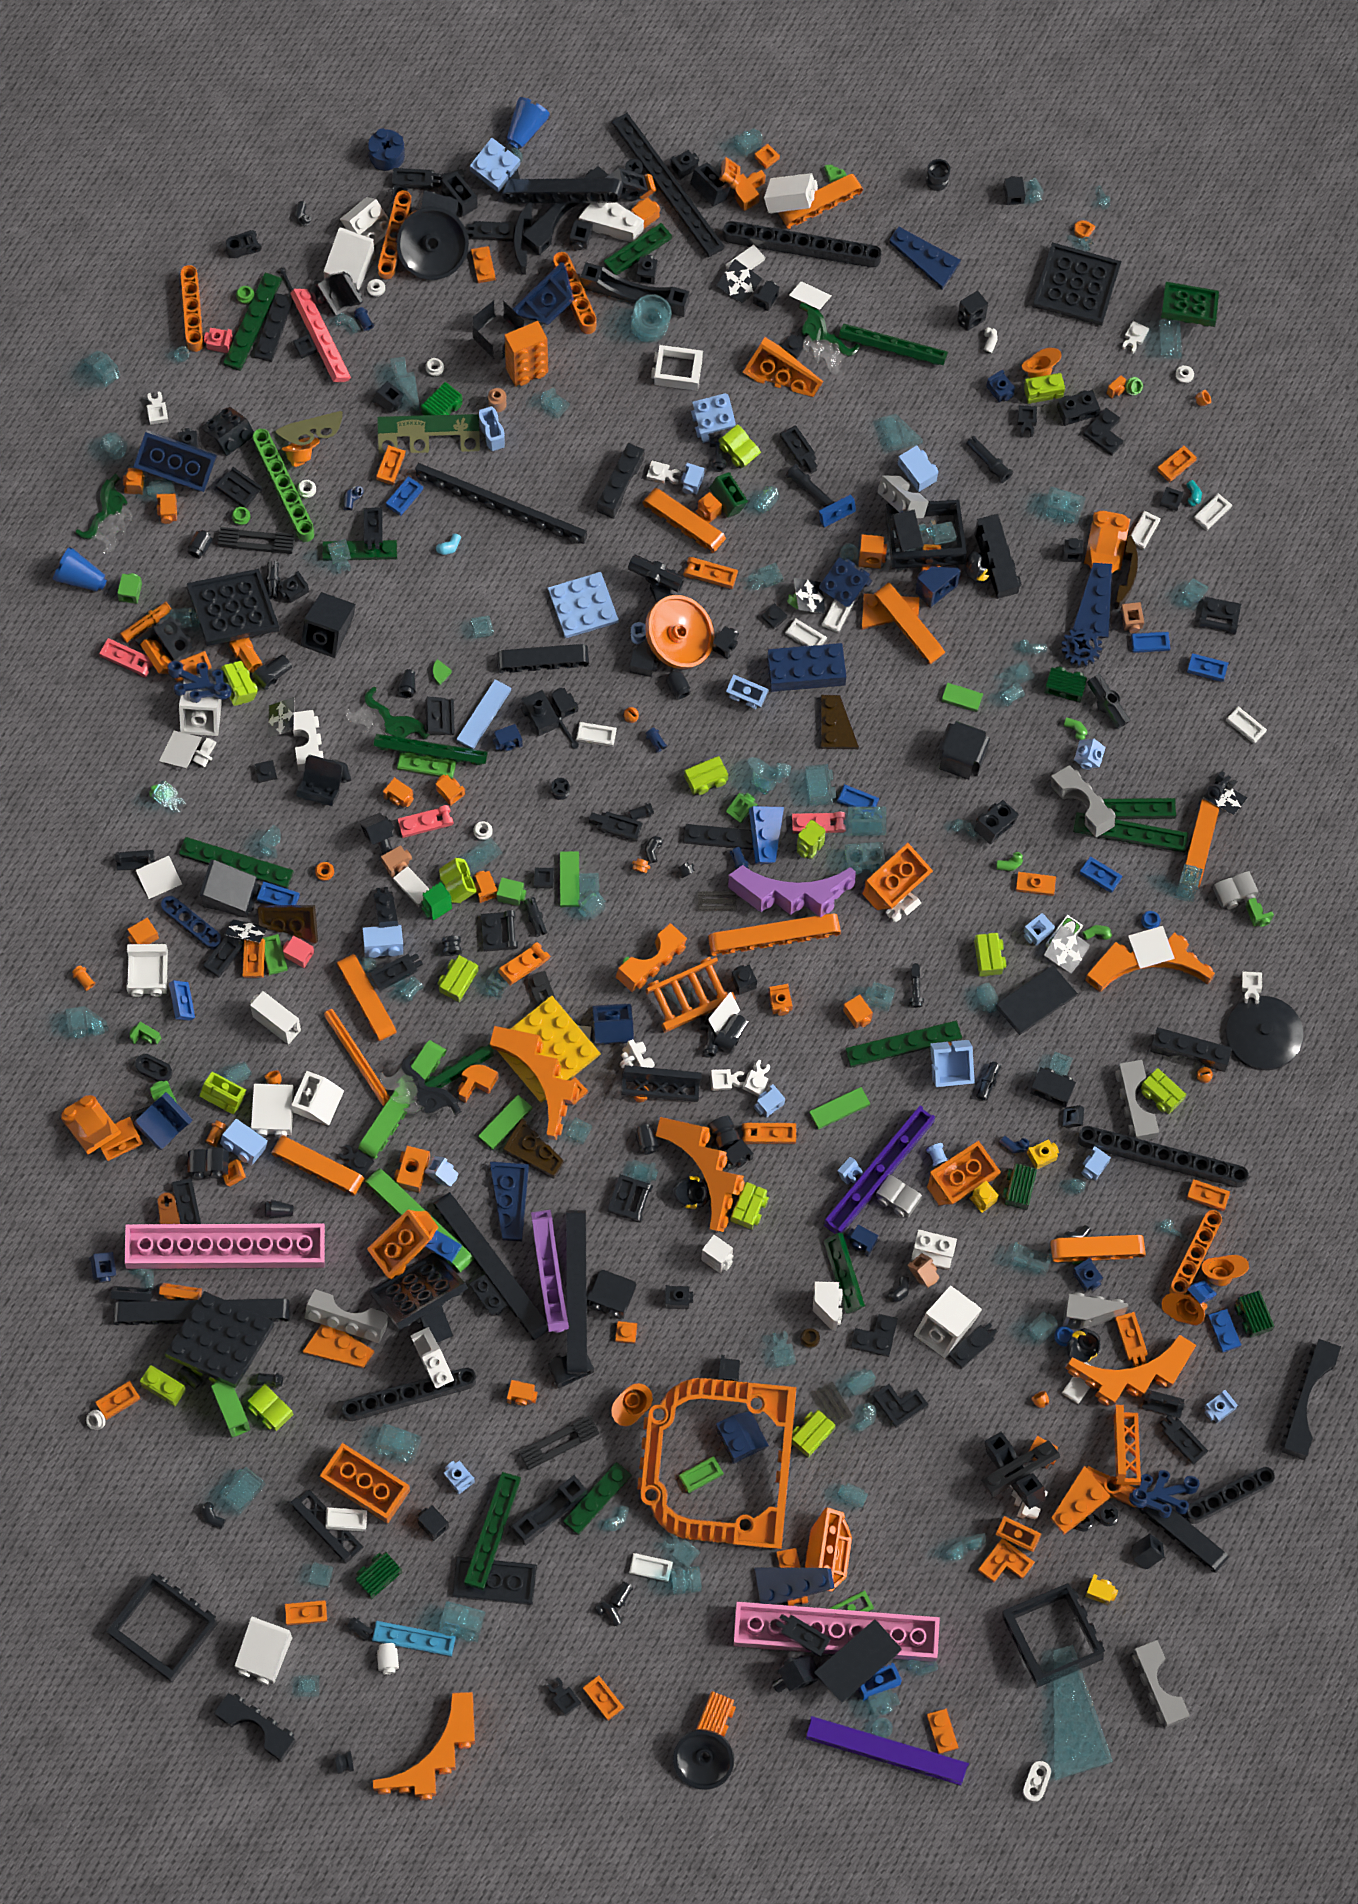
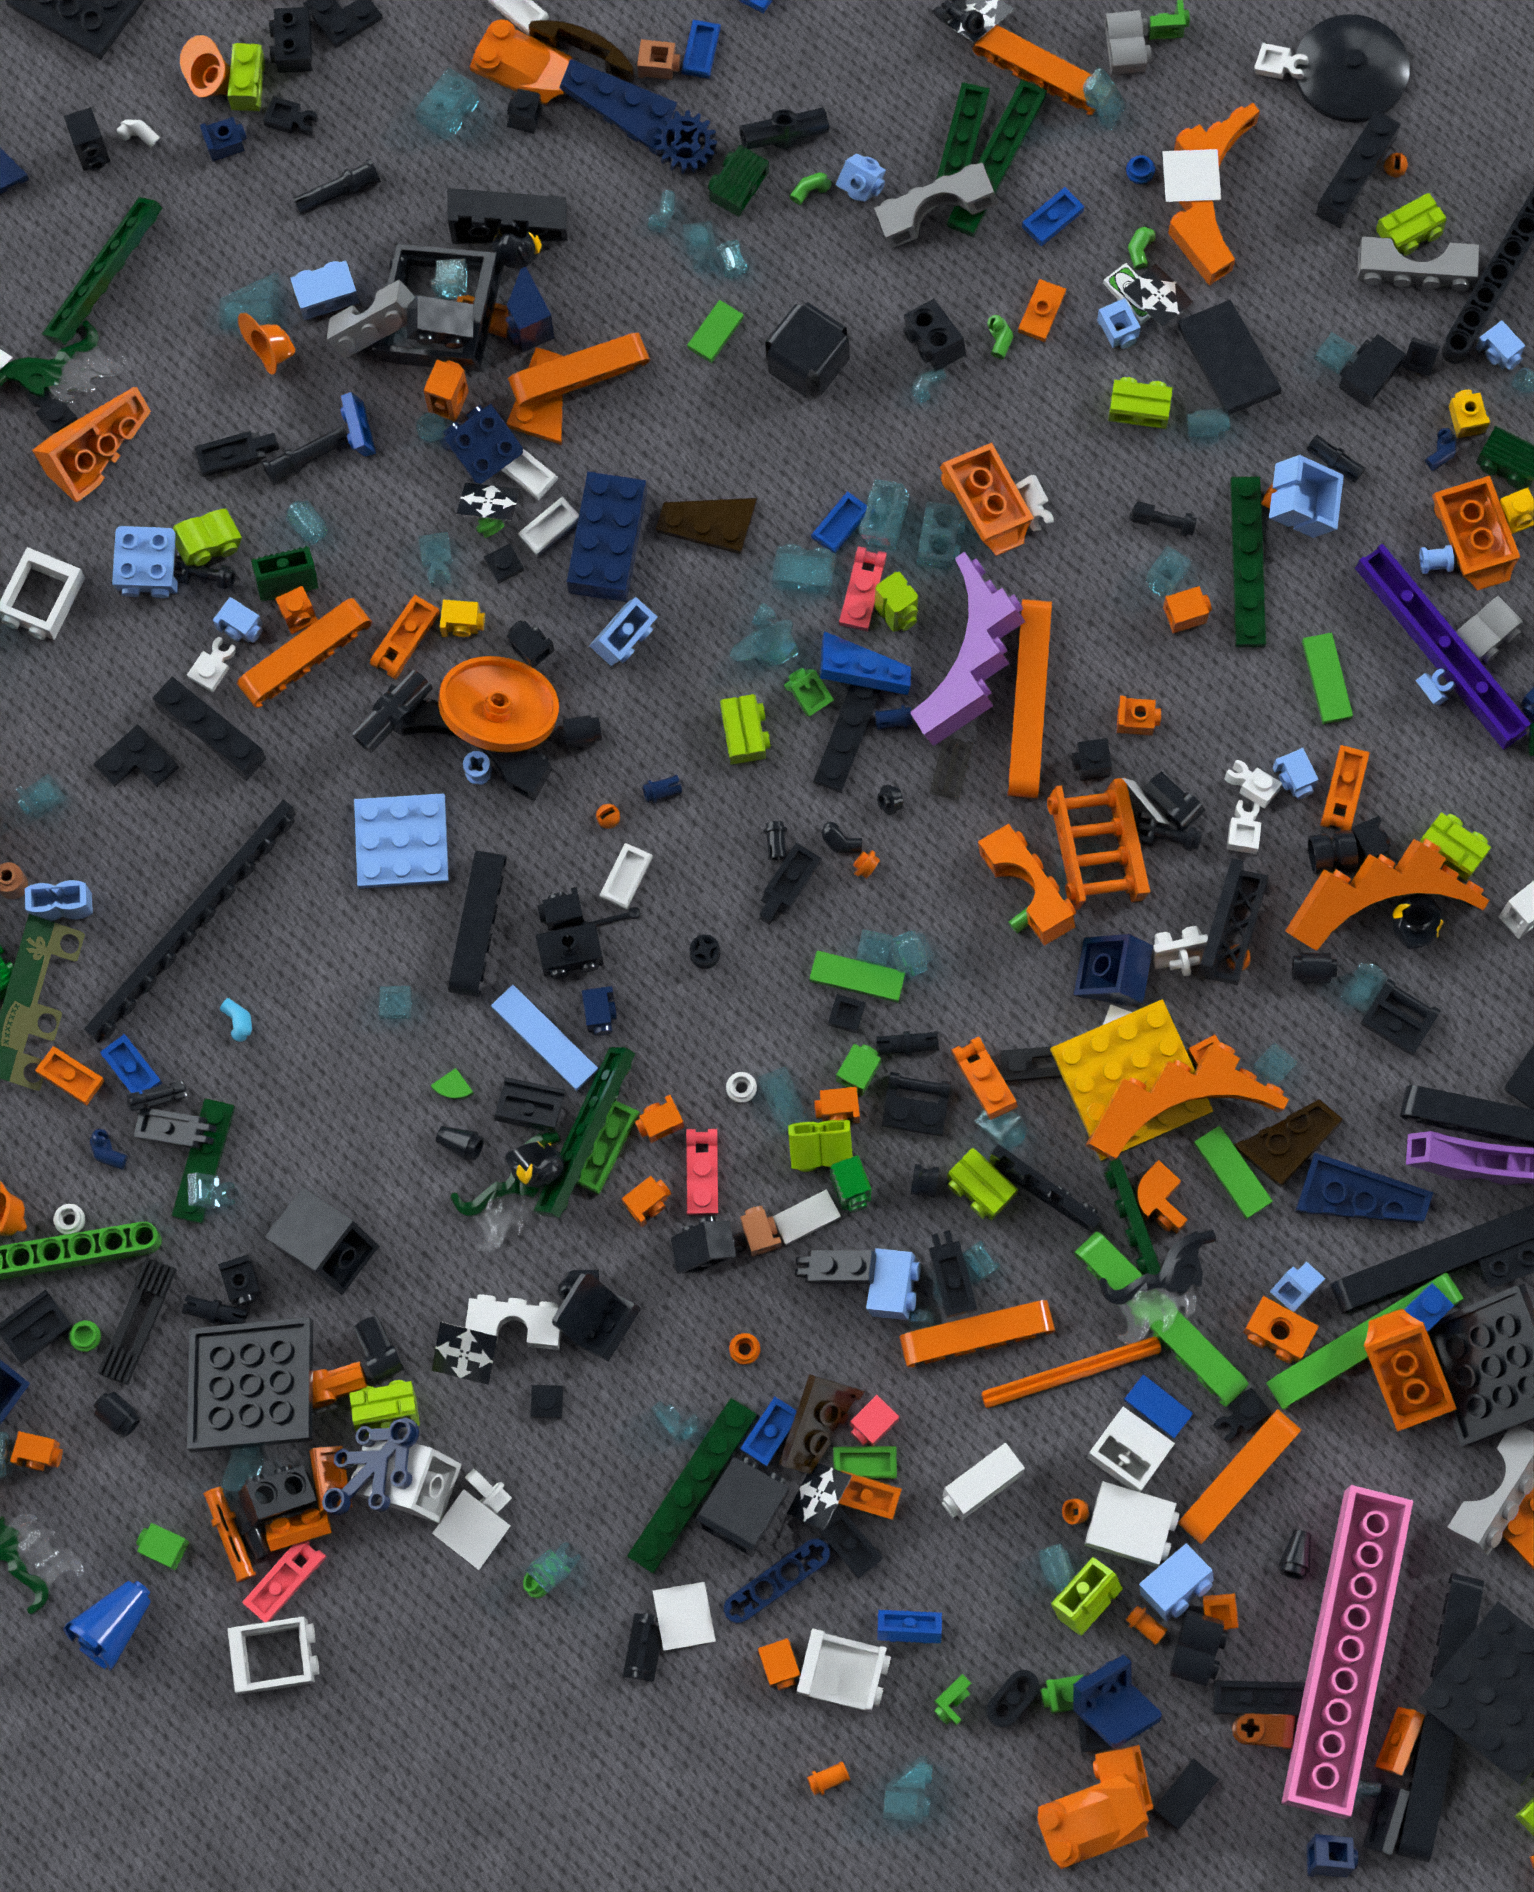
camera: 70 degrees left, 5 degrees up
(77, 645) = (240, 1659): none -> white window
(121, 1178) = (1185, 1794): none -> black tile
(349, 1111) = (1158, 1406): none -> blue tile
(390, 513) = (156, 1096): none -> black axle
(402, 724) = (535, 1164): none -> black hair
(454, 1040) = (1043, 1189): none -> black wing
(596, 447) = (133, 752): none -> black plate
(730, 599) = (461, 618): none -> yellow brick
(876, 449) = (267, 341): none -> orange piece

